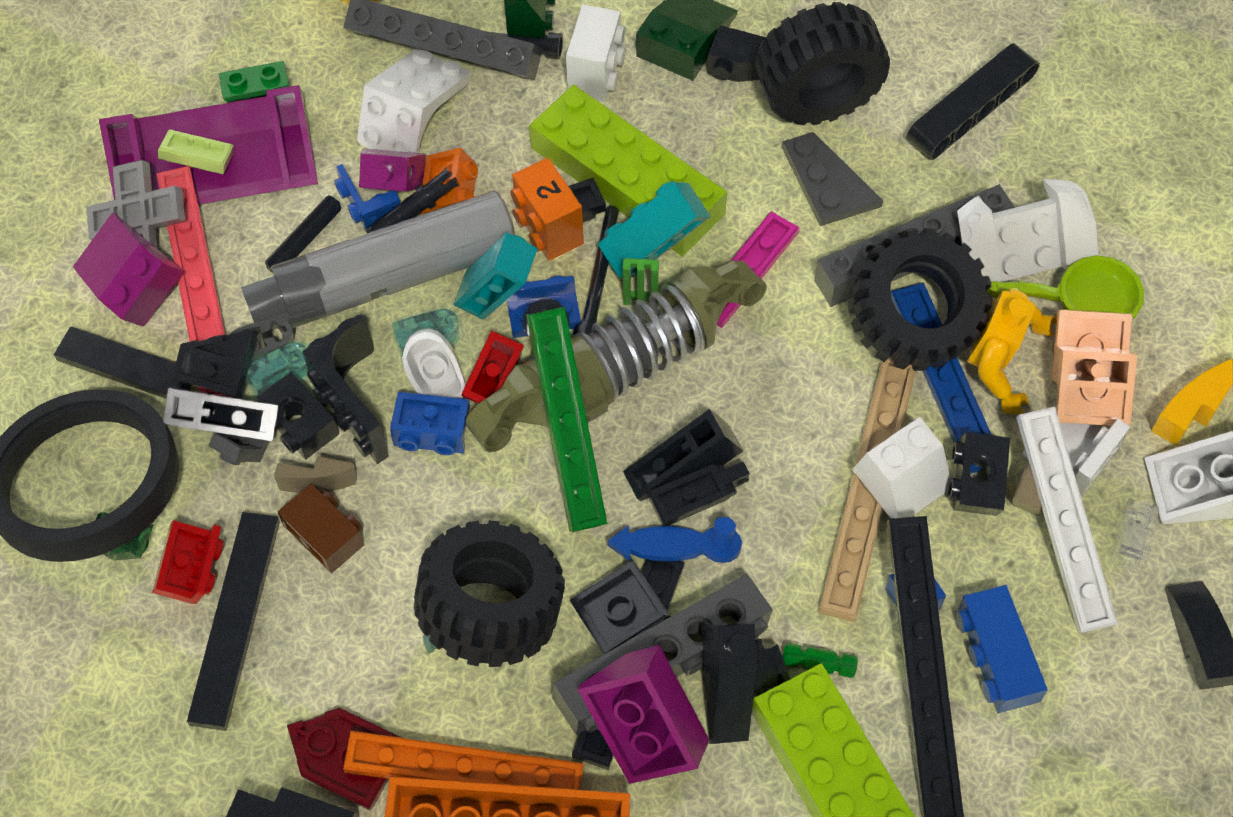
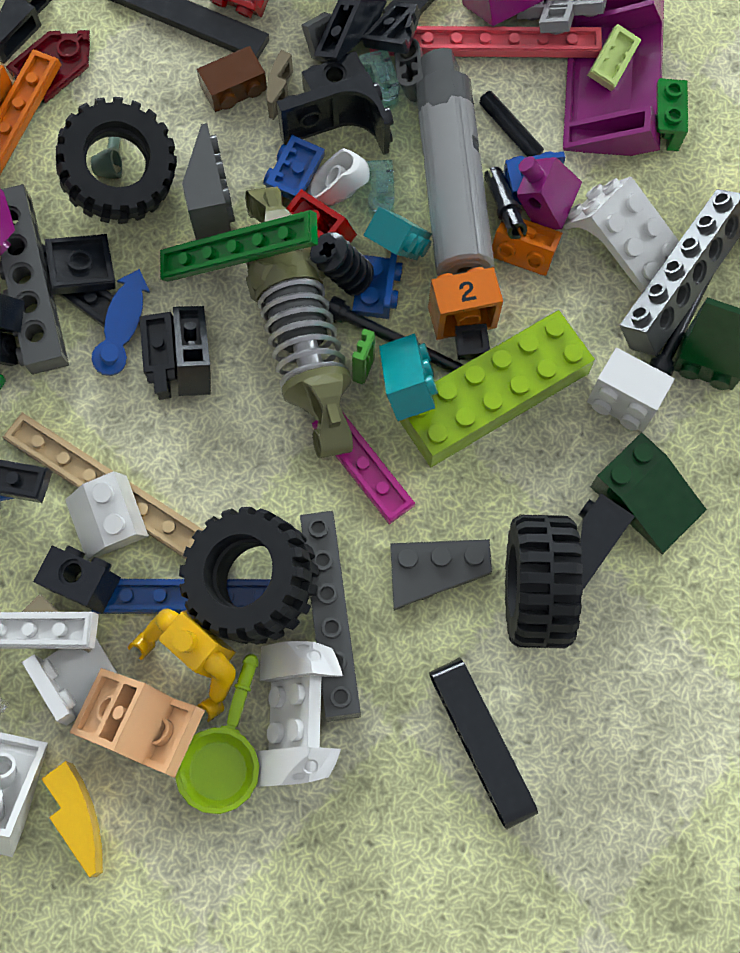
camera: 105 degrees right, 10 degrees up
(494, 490) = (207, 188): none -> dark grey slope

